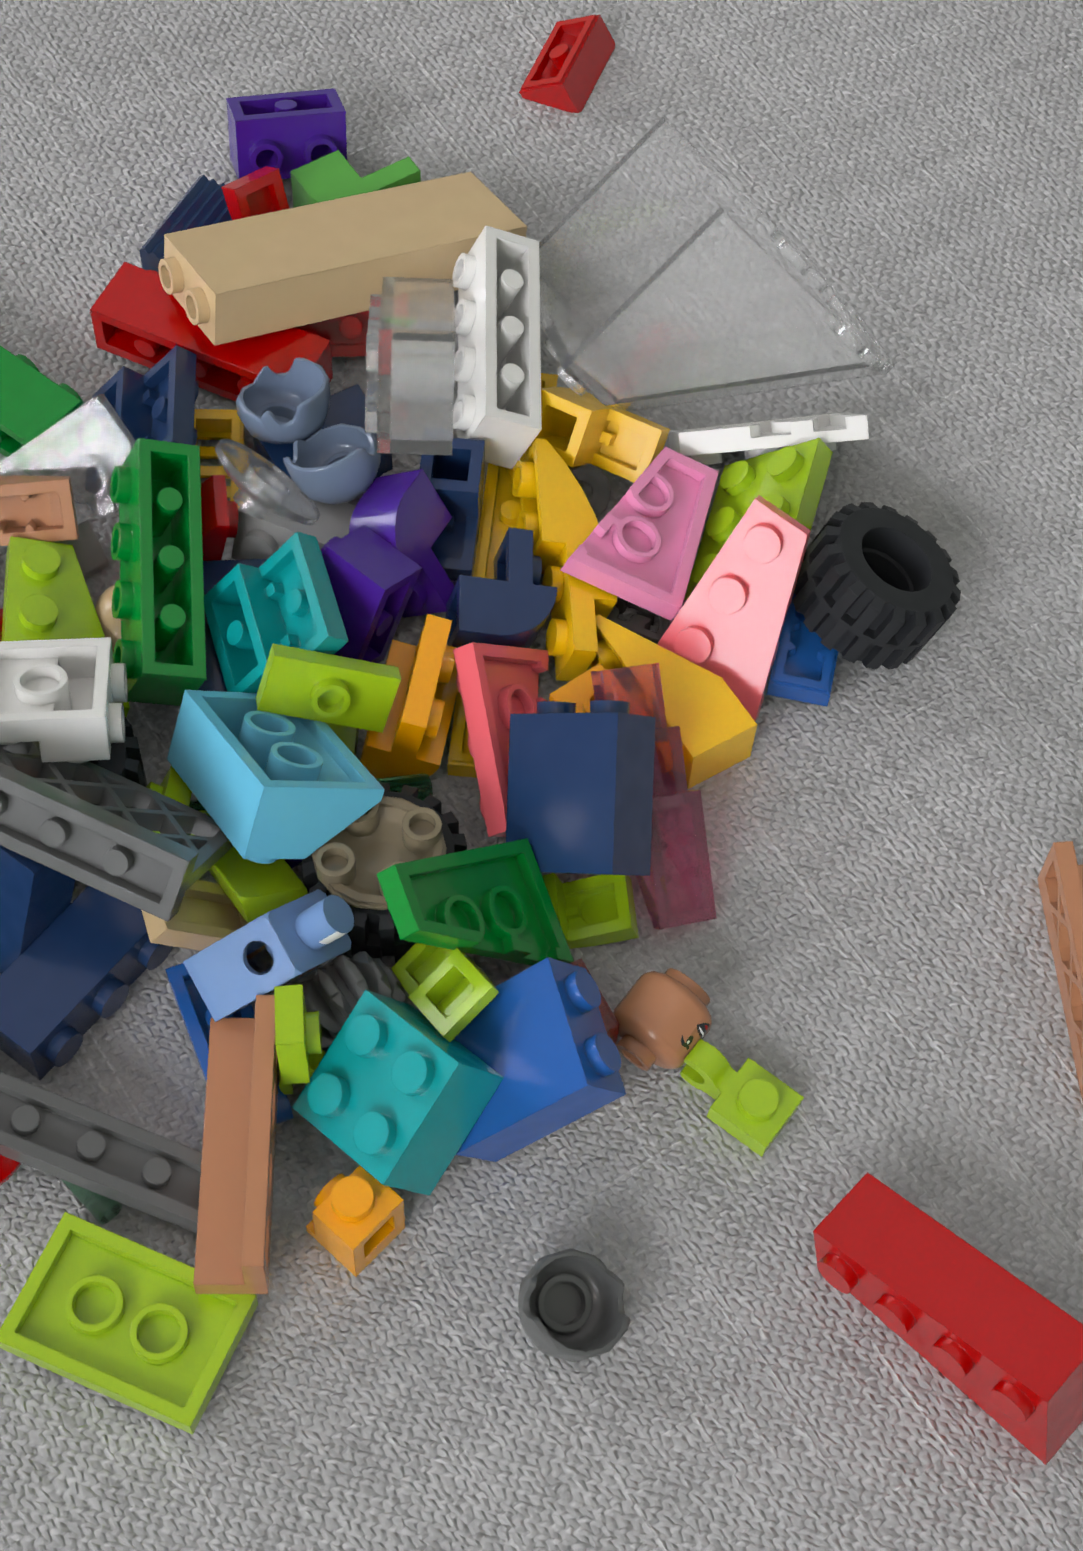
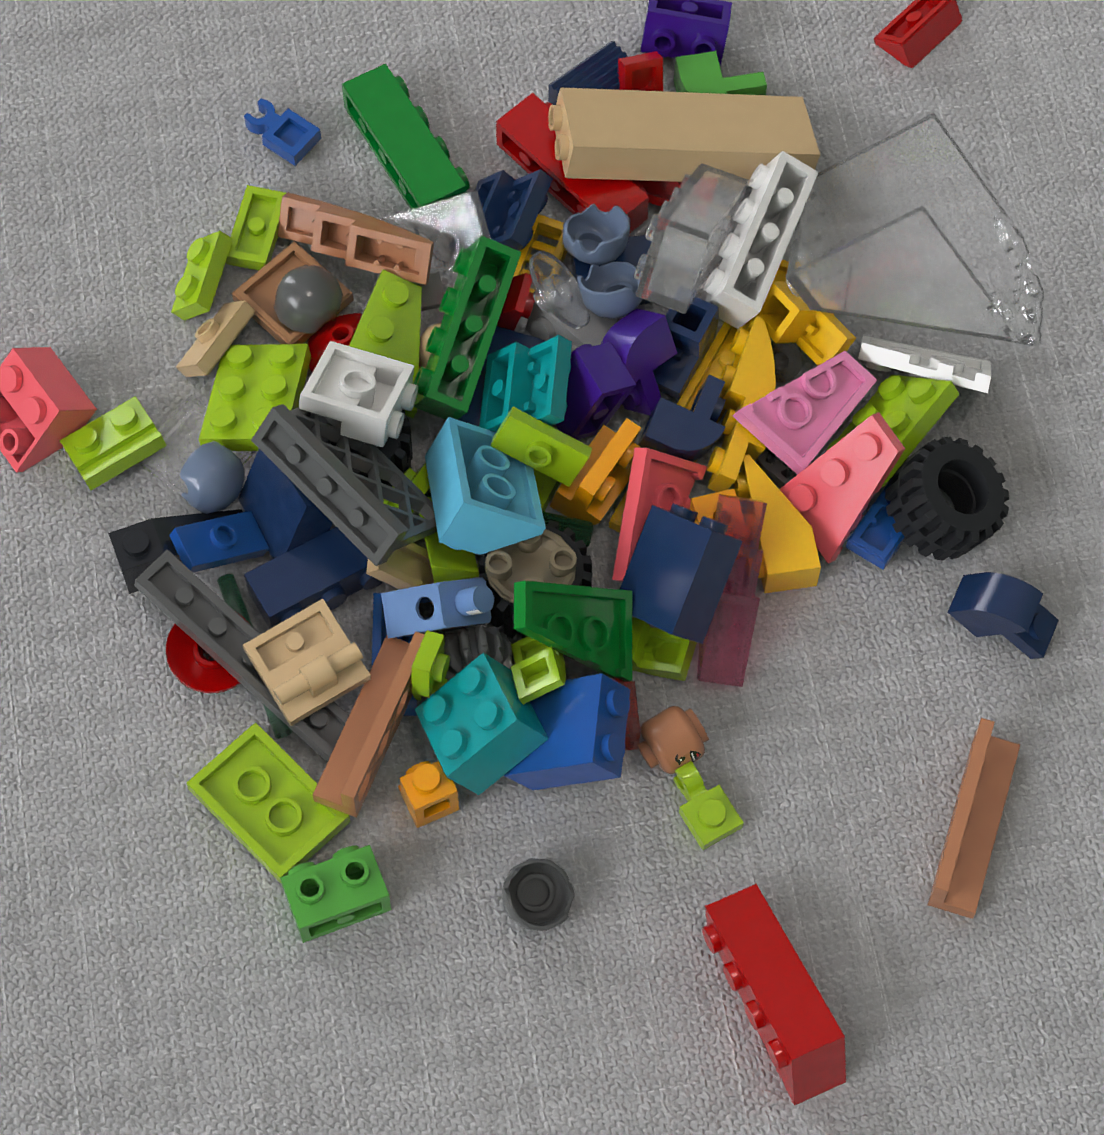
camera: 25 degrees right, 5 degrees up
(113, 1096) = (307, 662): none -> tan plate
(279, 1415) = (335, 892): none -> bright green brick
(1004, 695) = (1007, 607): none -> dark blue brick

